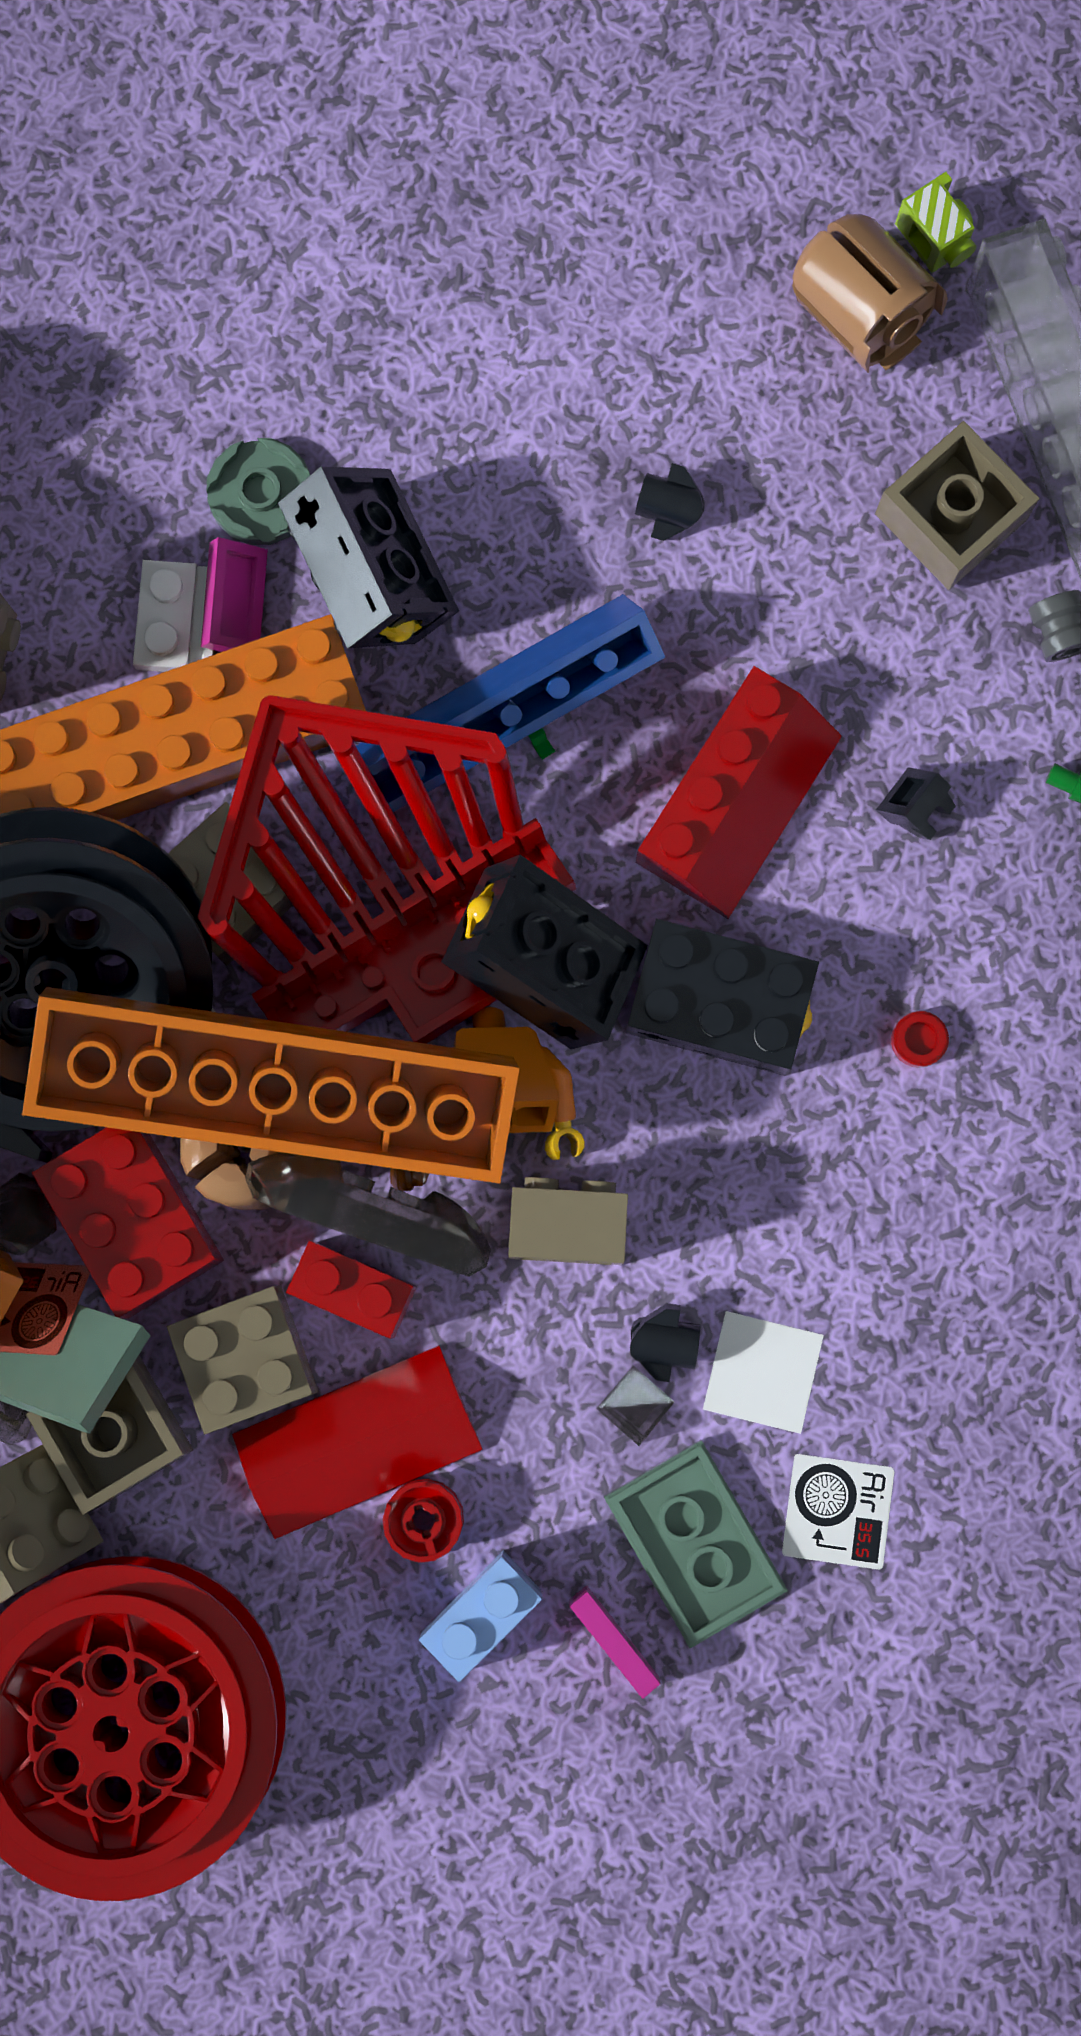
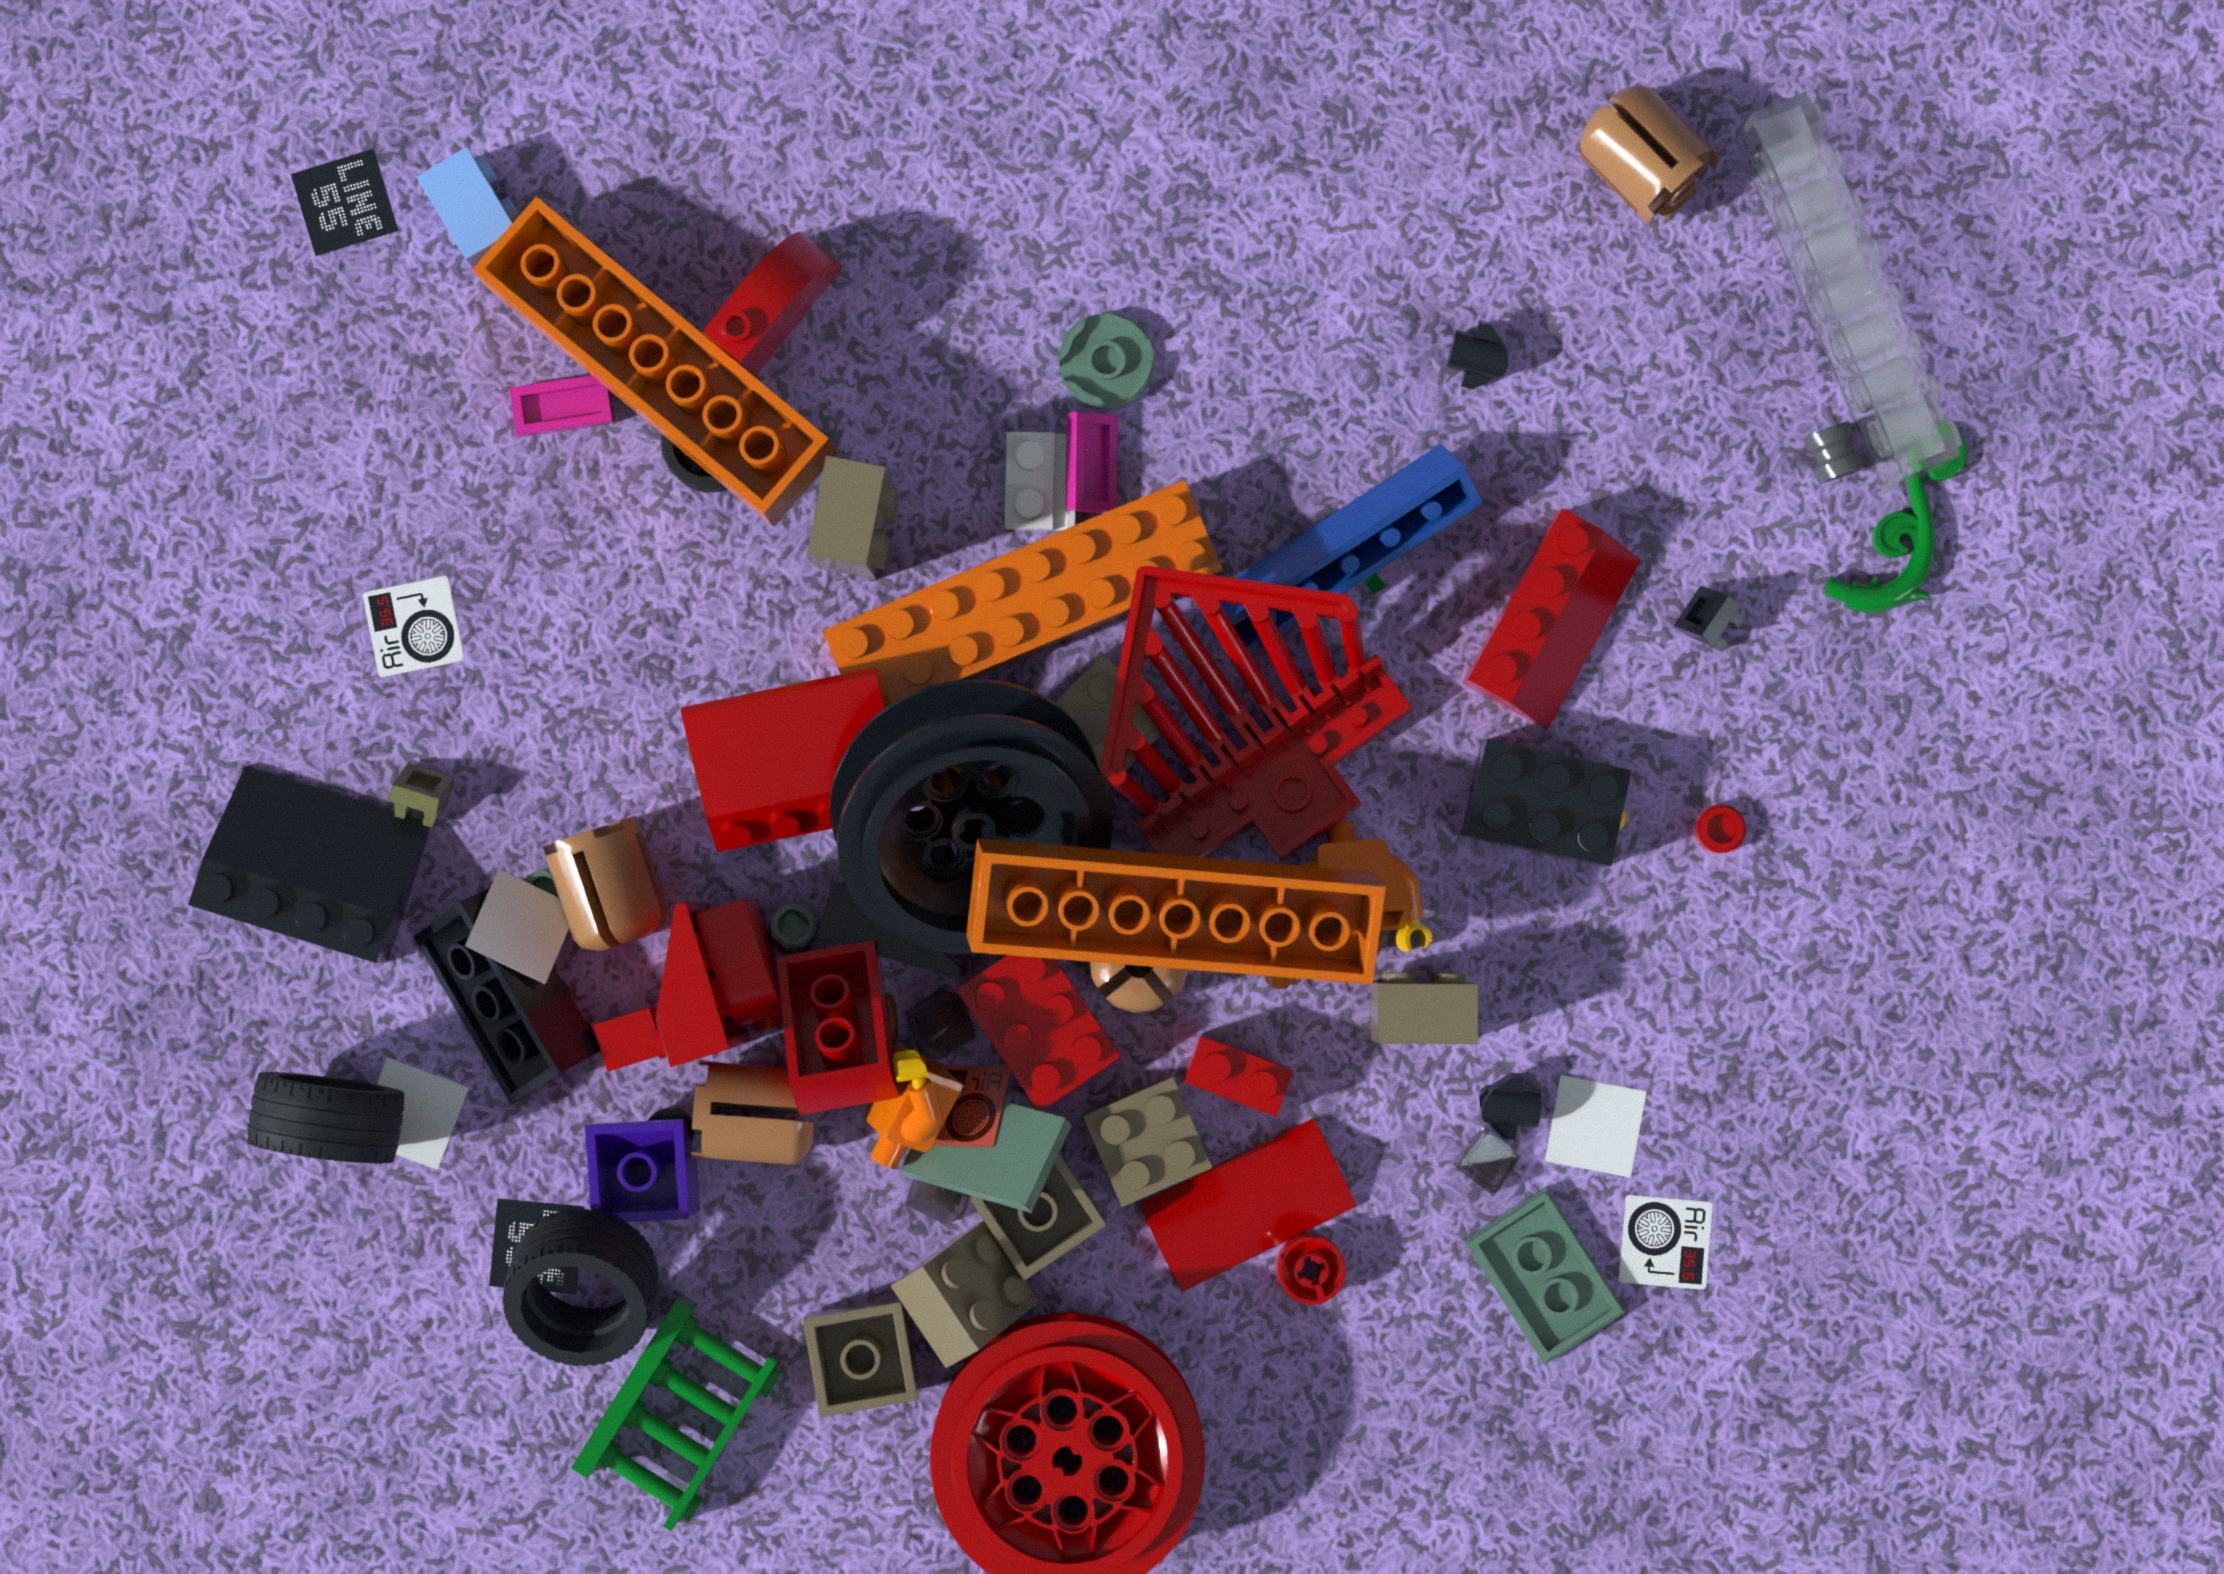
camera: 10 degrees left, 5 degrees up
(322, 1193) = (1230, 1002): clear smoke brick -> none
(367, 556) = (1214, 425): black piece -> none
(481, 1616) = (1365, 1347): light blue brick -> none
(545, 953) = (1393, 776): black piece -> none
(614, 1642) = (1480, 1362): dark pink tile -> none
(937, 225) = (1708, 85): lime brick -> none
(956, 505) = (1735, 349): dark tan brick -> none

